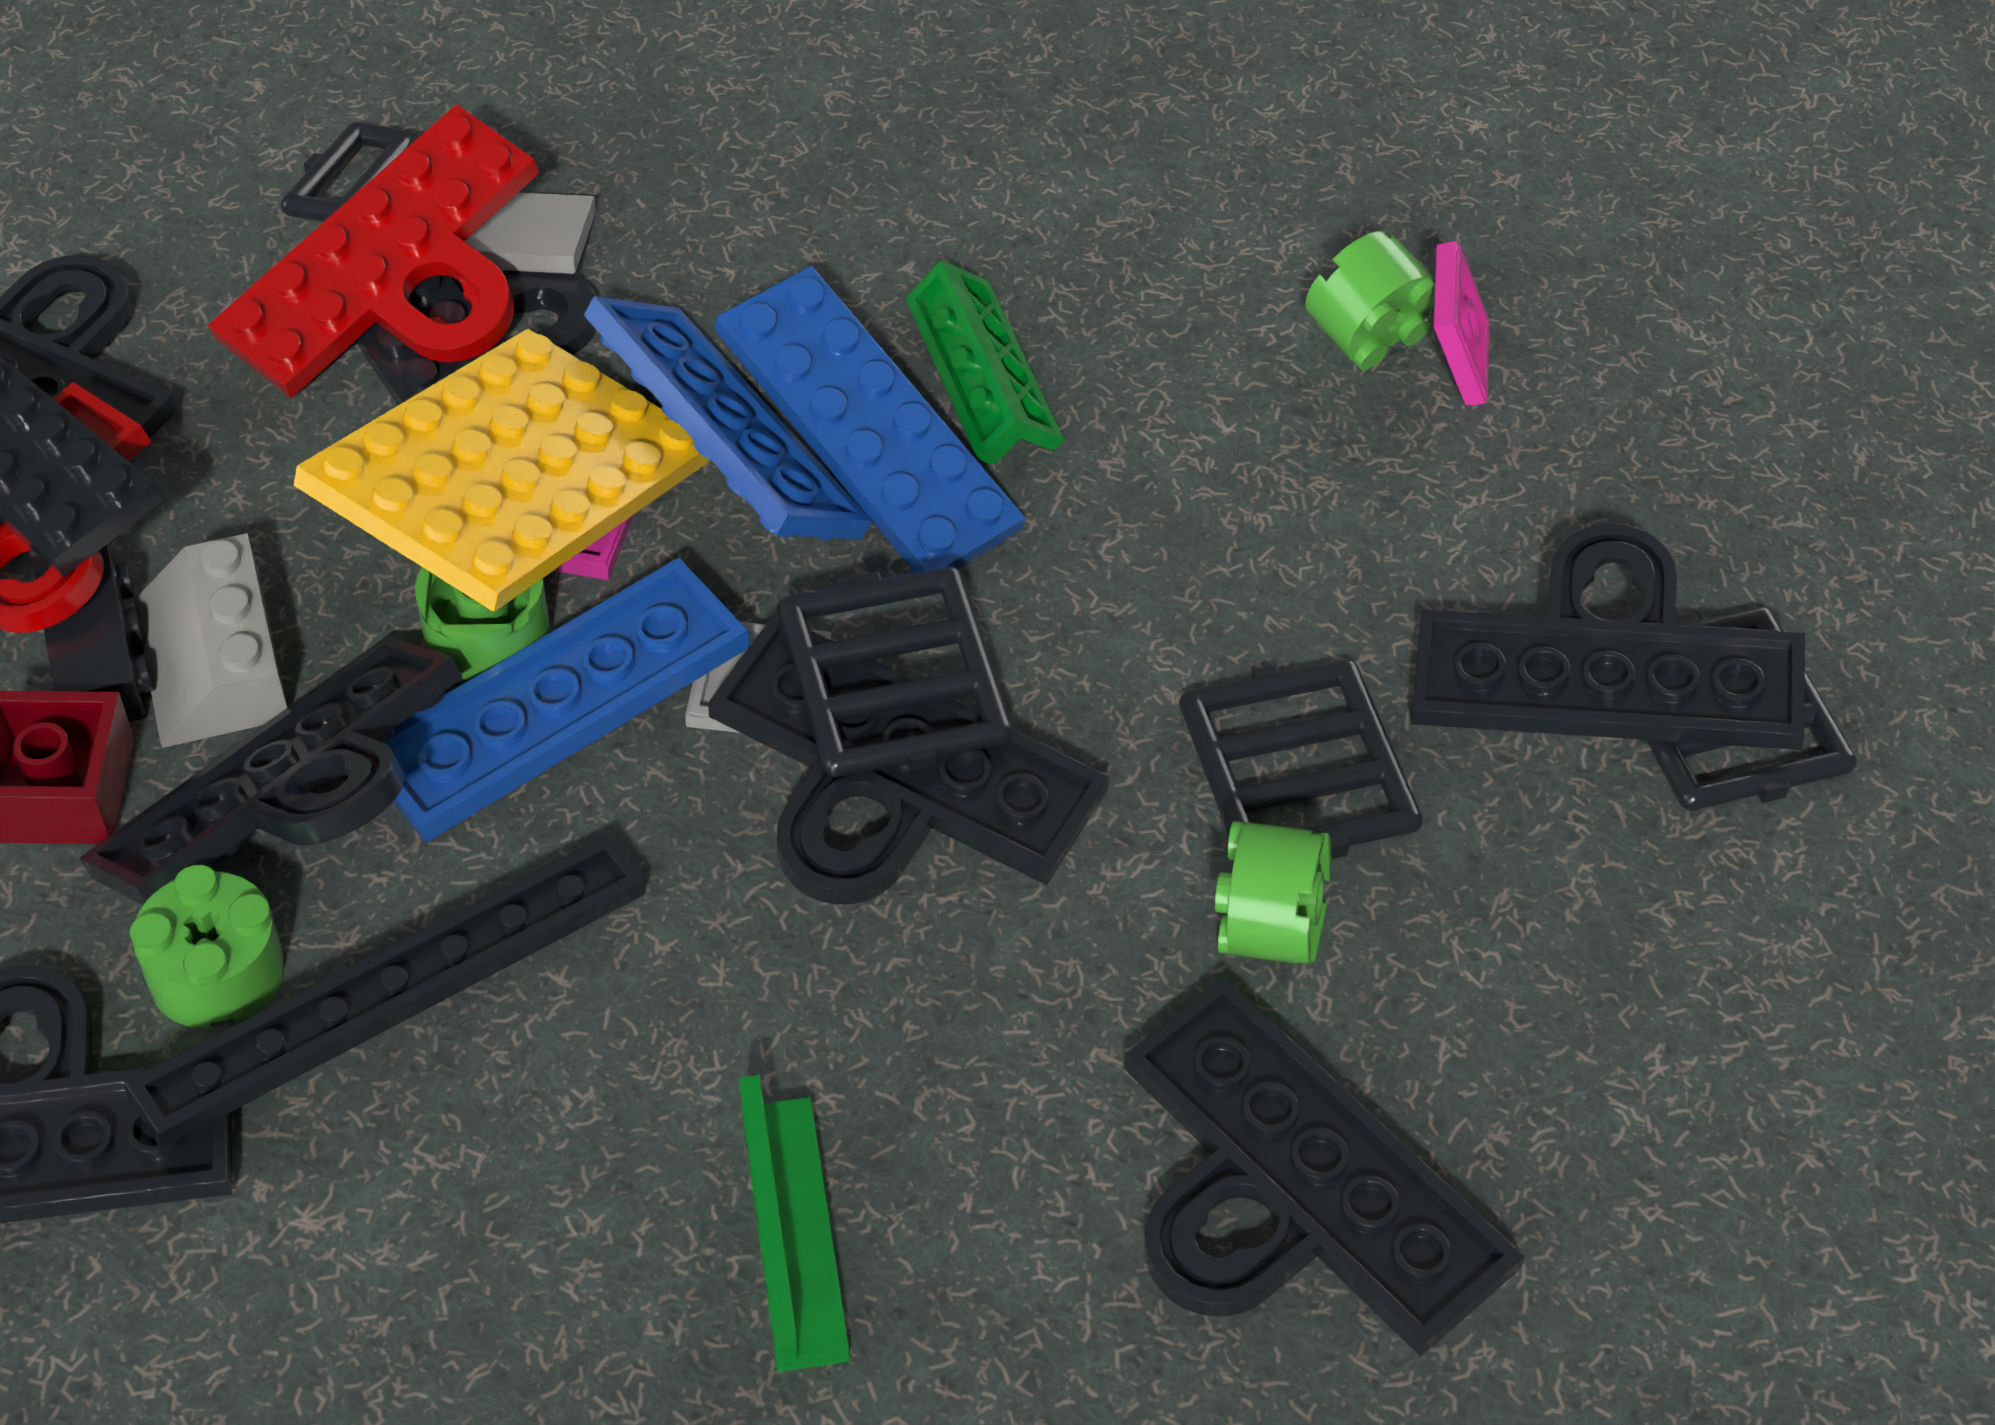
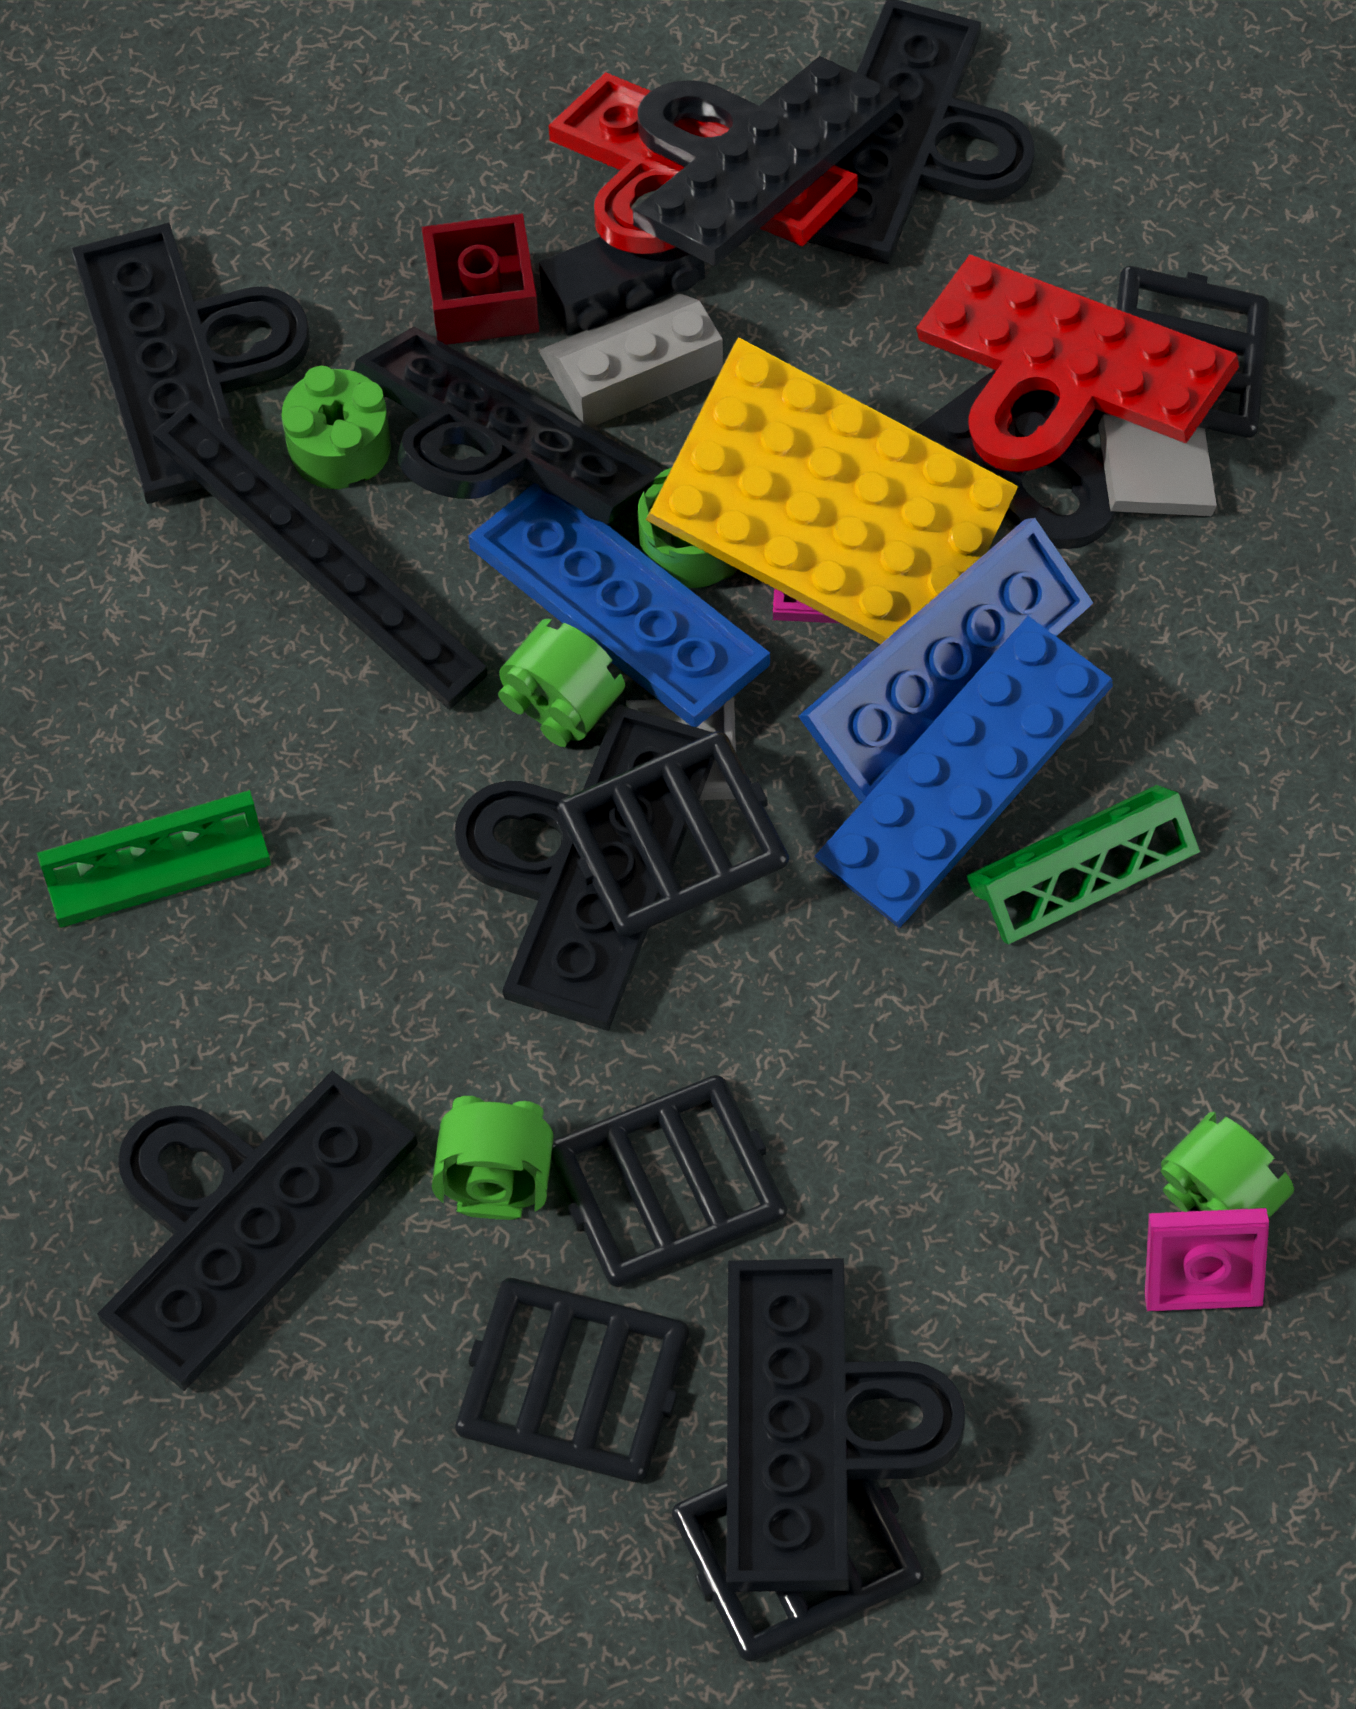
camera: 85 degrees right, 10 degrees up
(662, 751) = (560, 682): none -> bright green brick
(1498, 955) = (581, 1451): none -> black bar

